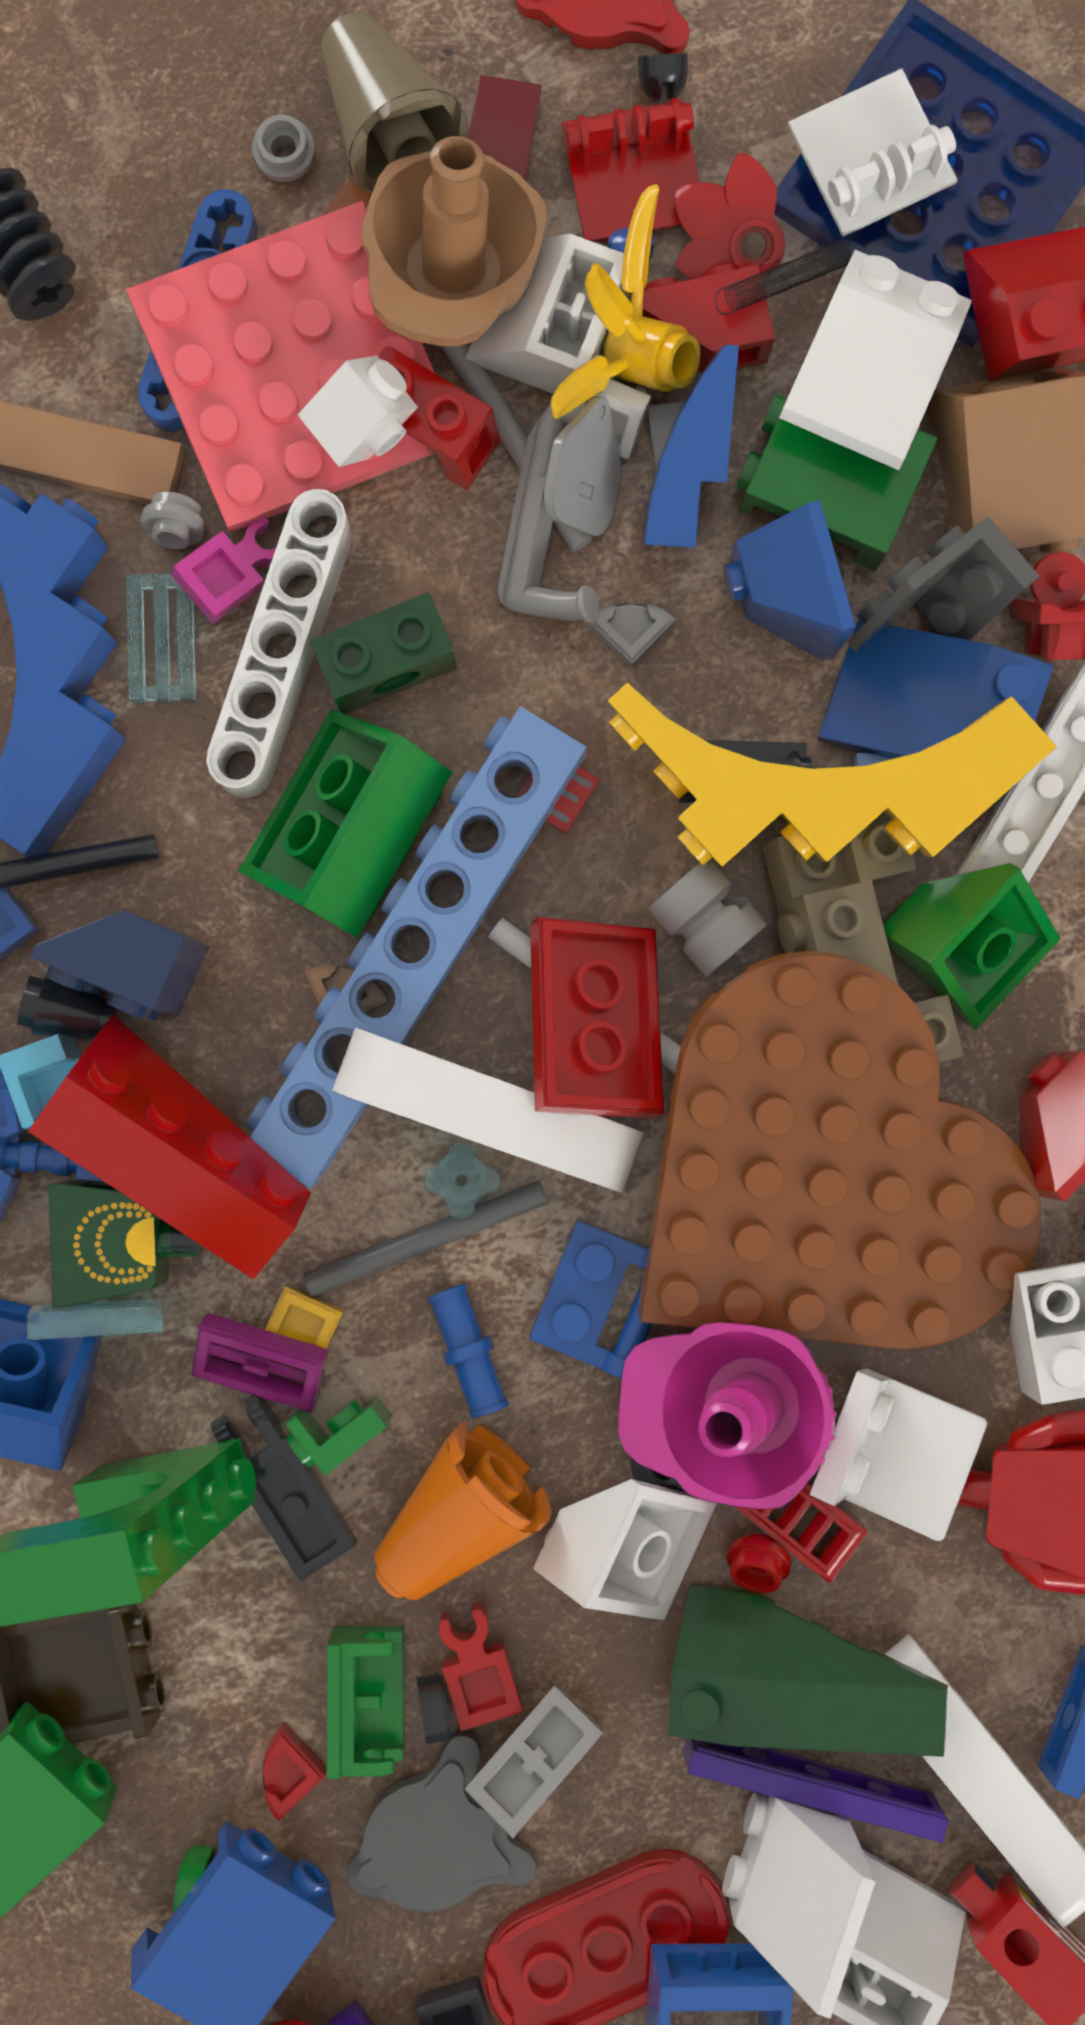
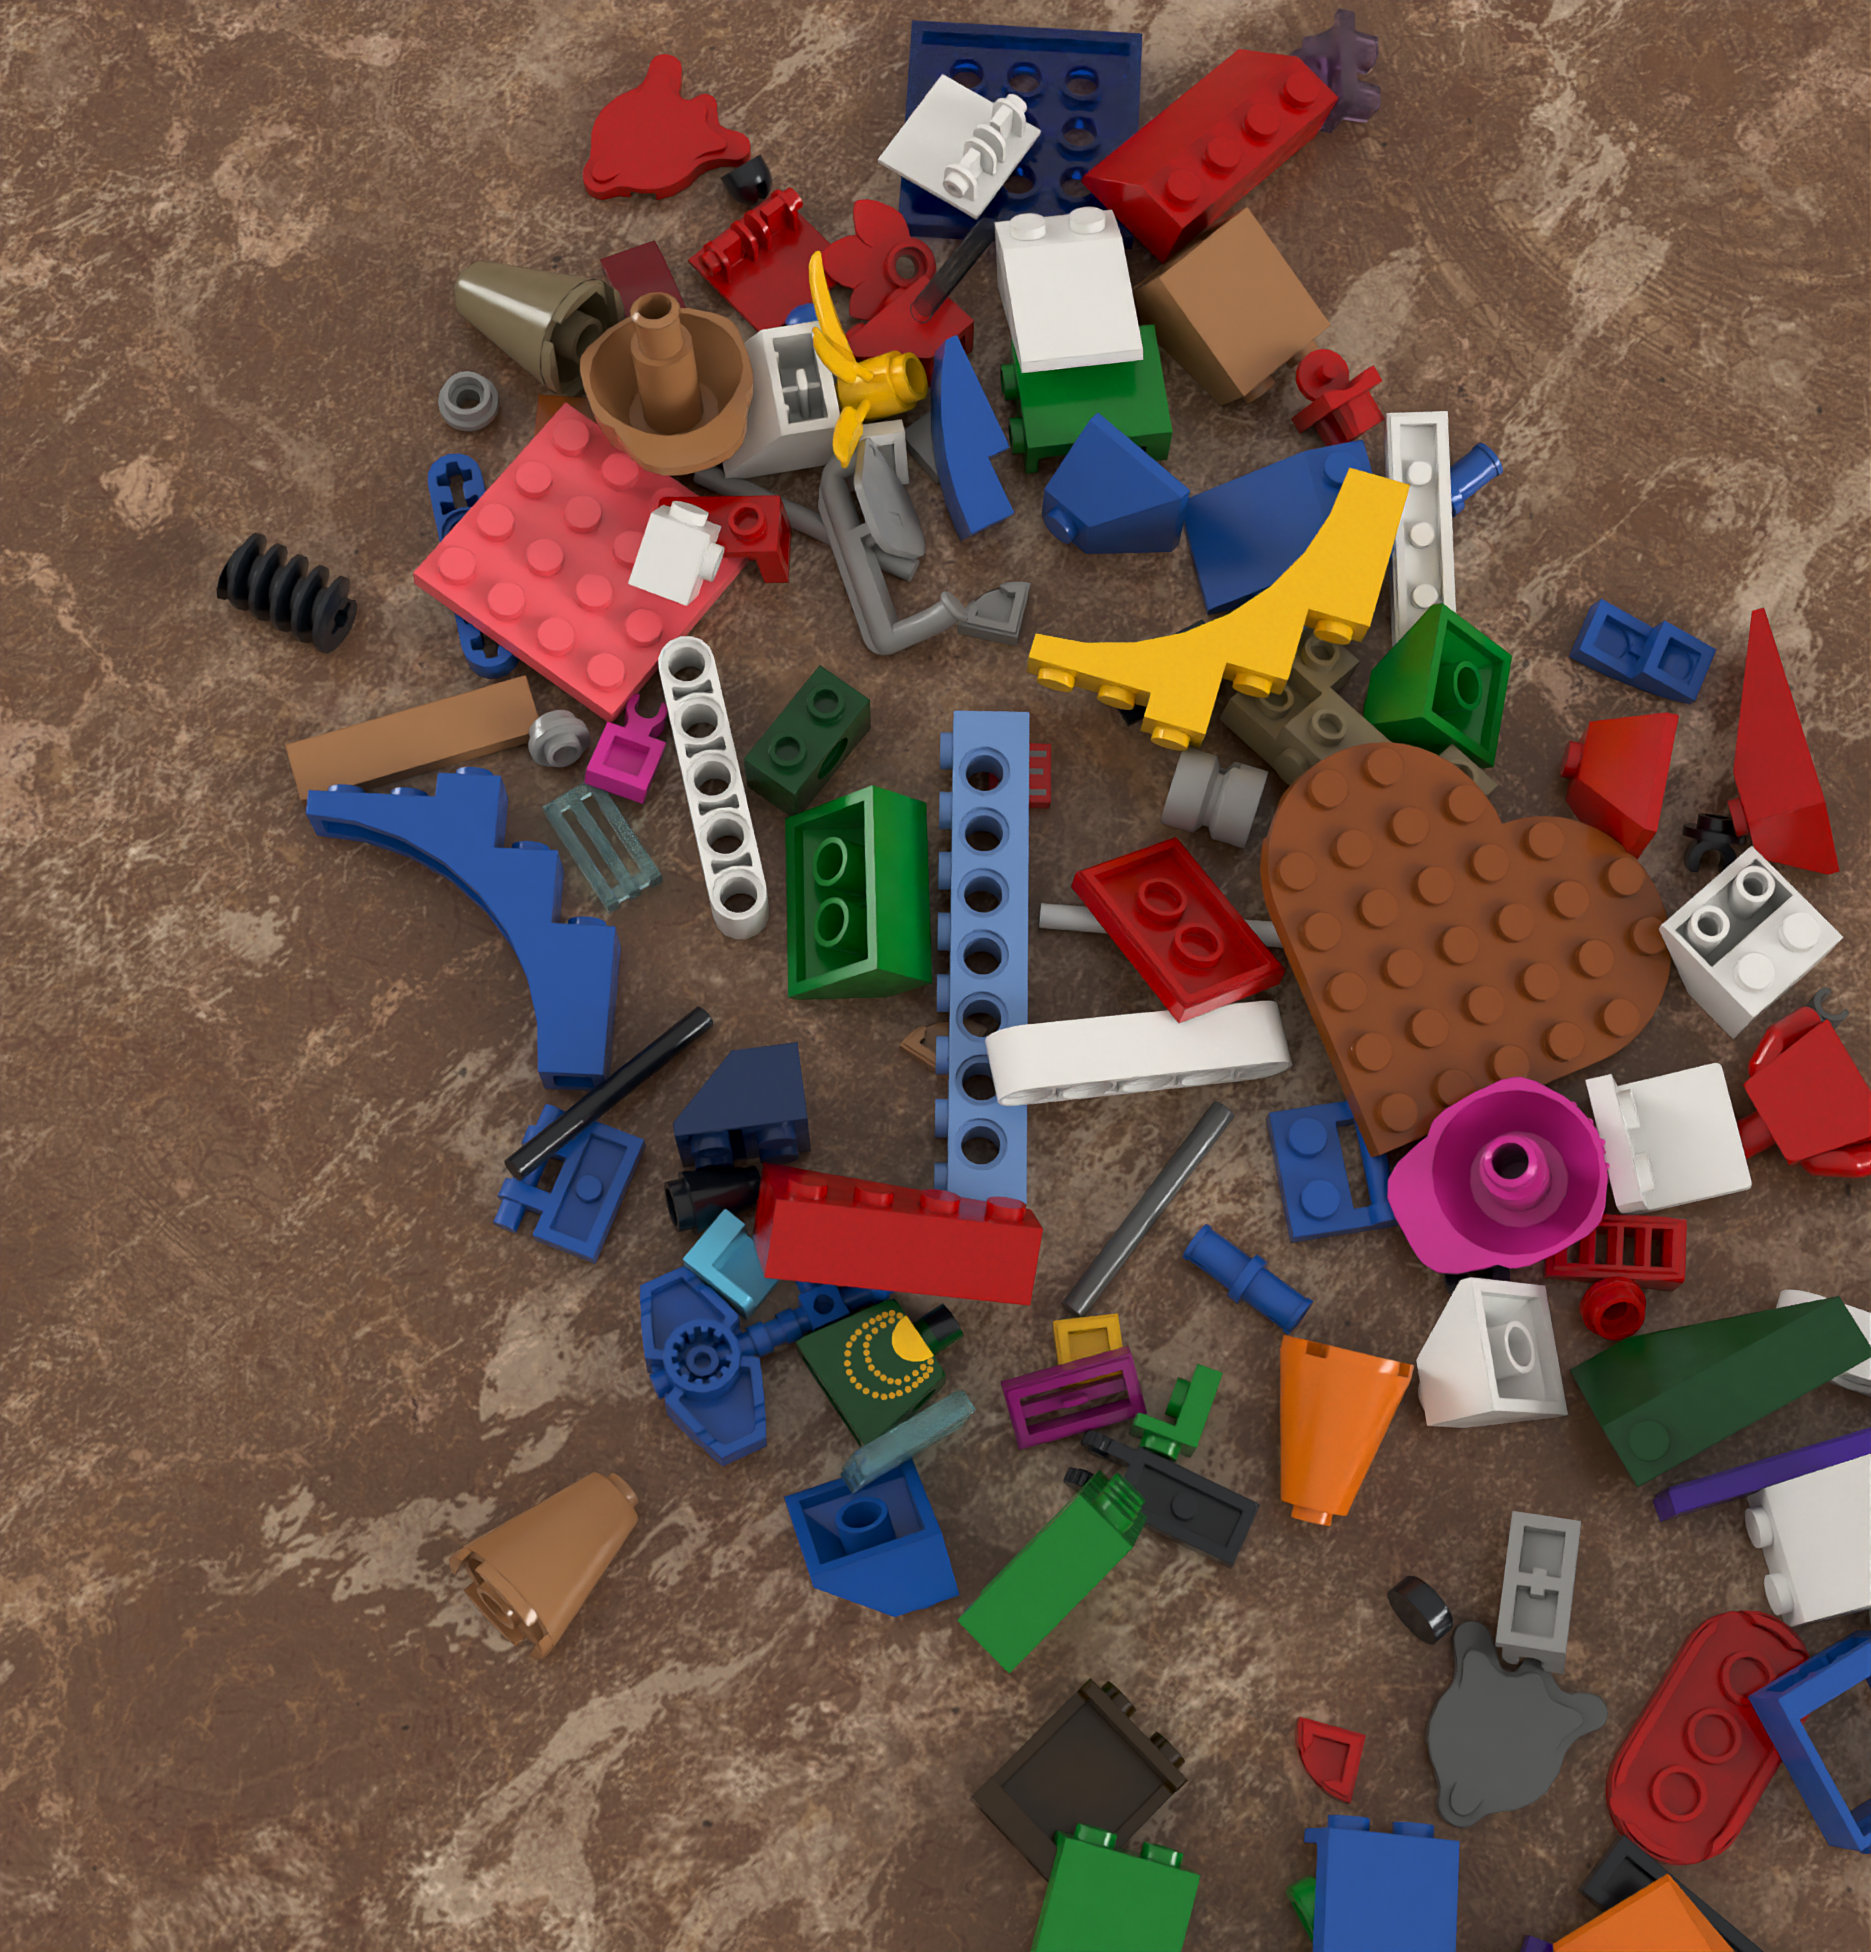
camera: 30 degrees left, 15 degrees down
(365, 1700) = (1354, 1642): green hinge -> none
(459, 1162) = (1144, 1121): clear light blue plate -> none
(480, 1676) = (1442, 1556): red plate -> none
(956, 591) = (1247, 425): dark grey bracket -> none

